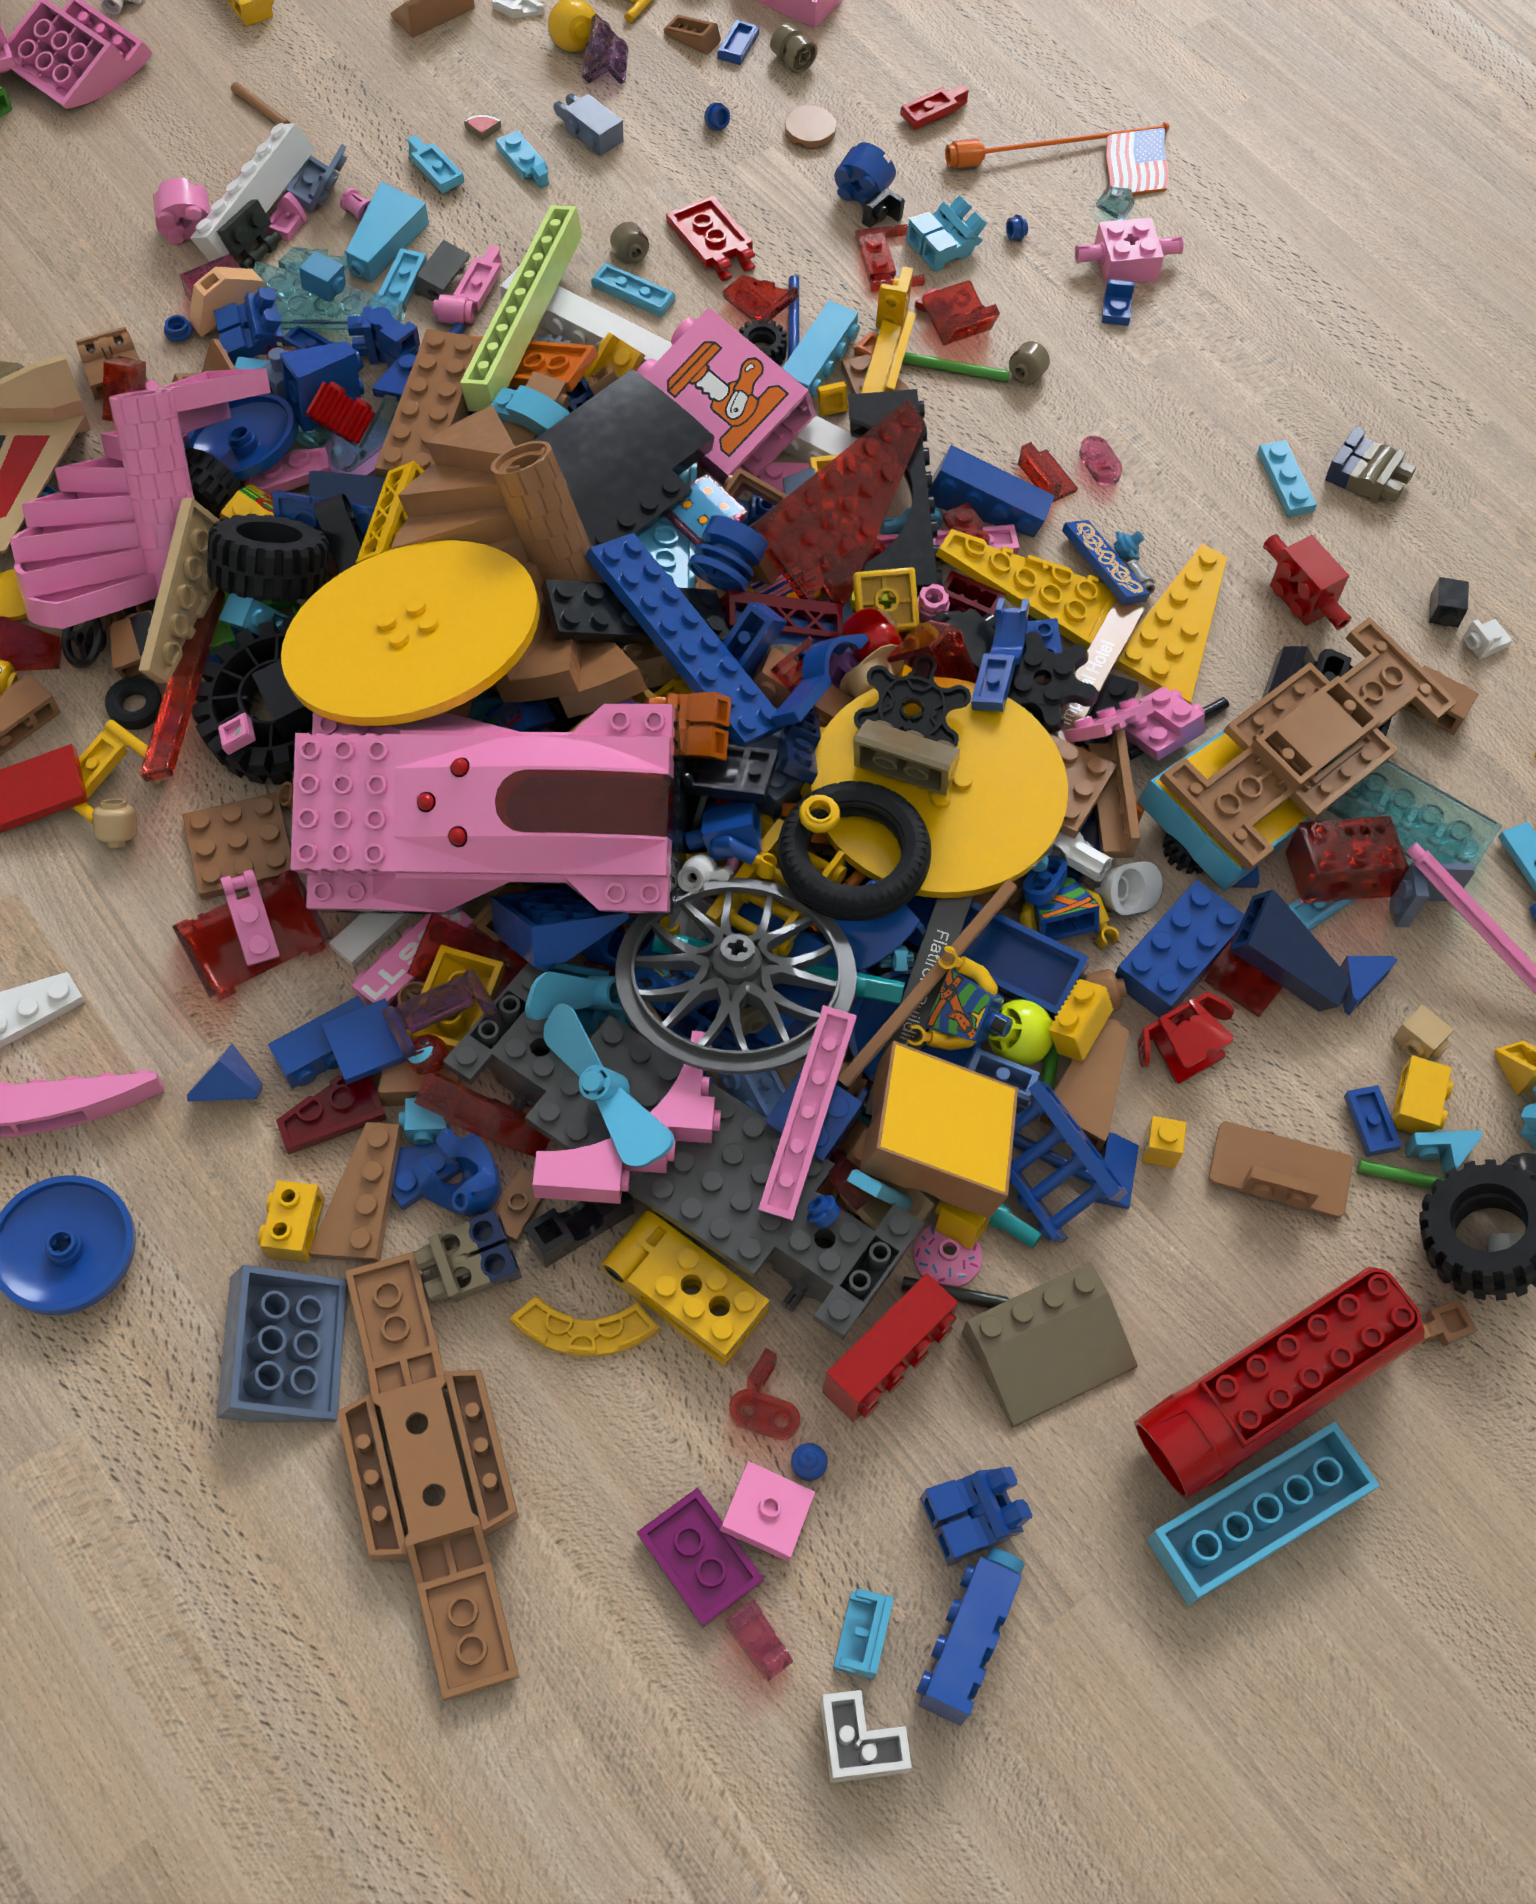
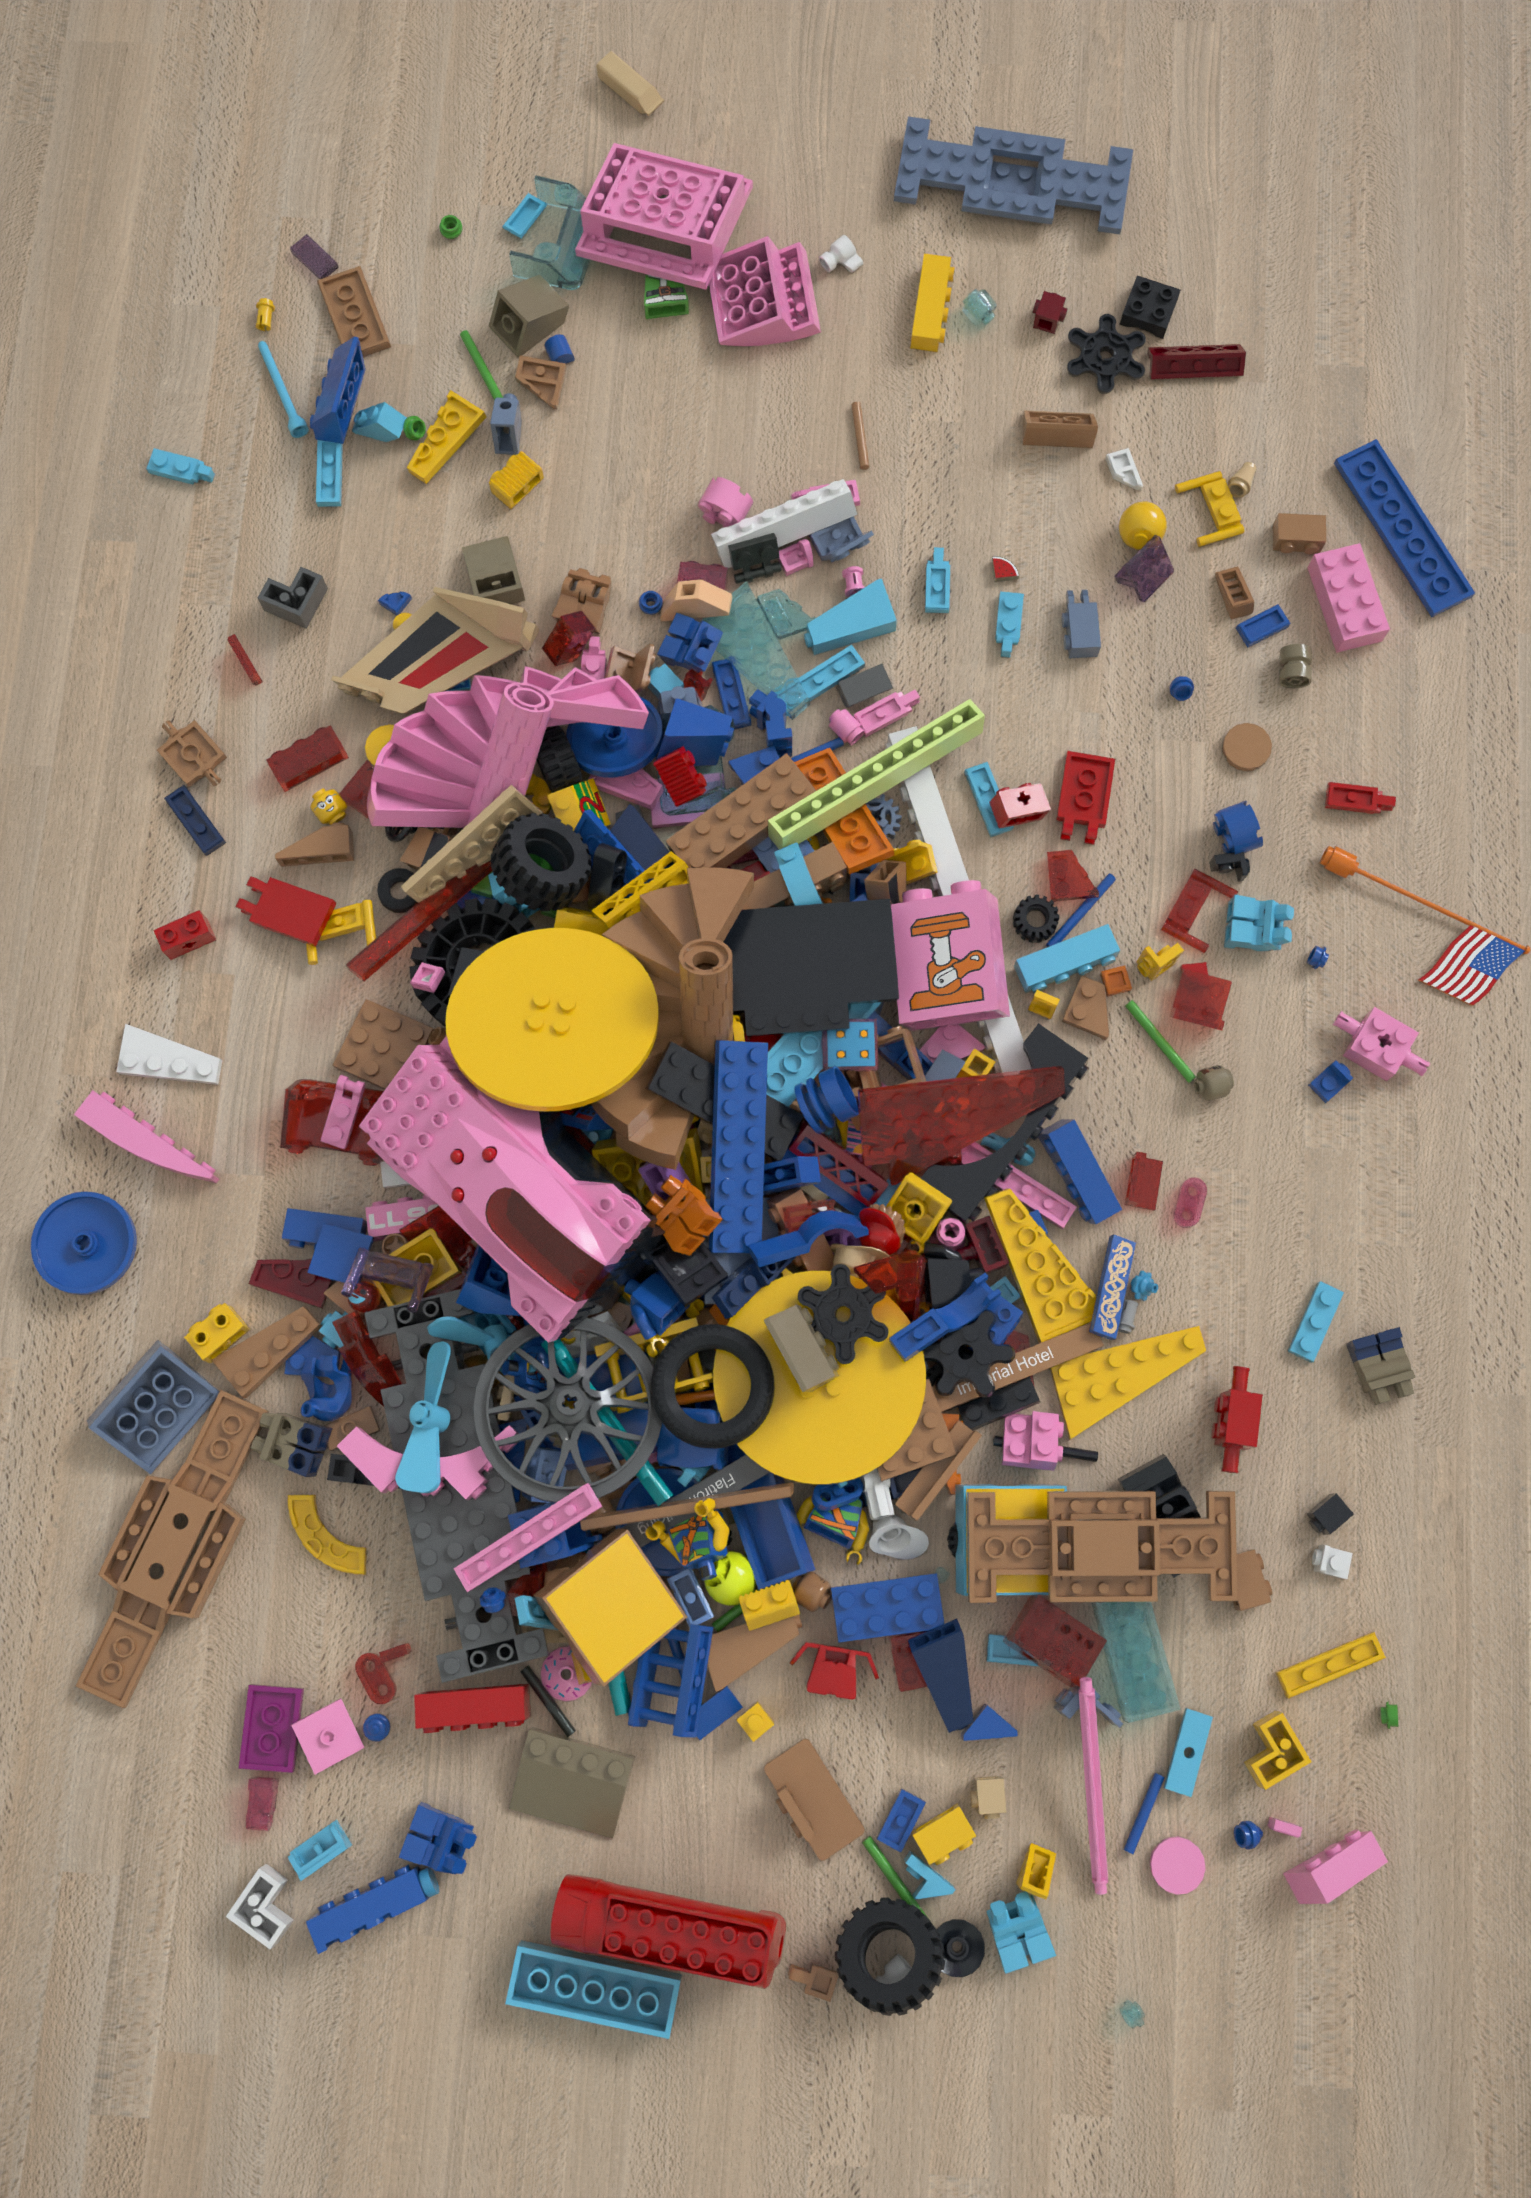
camera: 45 degrees right, 15 degrees up
(114, 822) = (319, 975): tan head -> none
(227, 1080) = (252, 1208): blue slope -> none
(322, 276) = (769, 640): dark azure brick -> none
(629, 242) = (1017, 758): dark tan head -> none
(660, 1263) = (385, 1543): yellow hinge -> none
(666, 270) = (1019, 805): none -> brick
(701, 869) = (613, 1314): white piece -> none
(819, 802) = (715, 1349): yellow piece -> none
(887, 355) = (1104, 1006): yellow fence -> none
(966, 521) = (1040, 1181): clear red plate -> none
(1108, 720) = (983, 1417): bright pink wing -> none
(1116, 202) = (1417, 990): clear light blue slope -> none

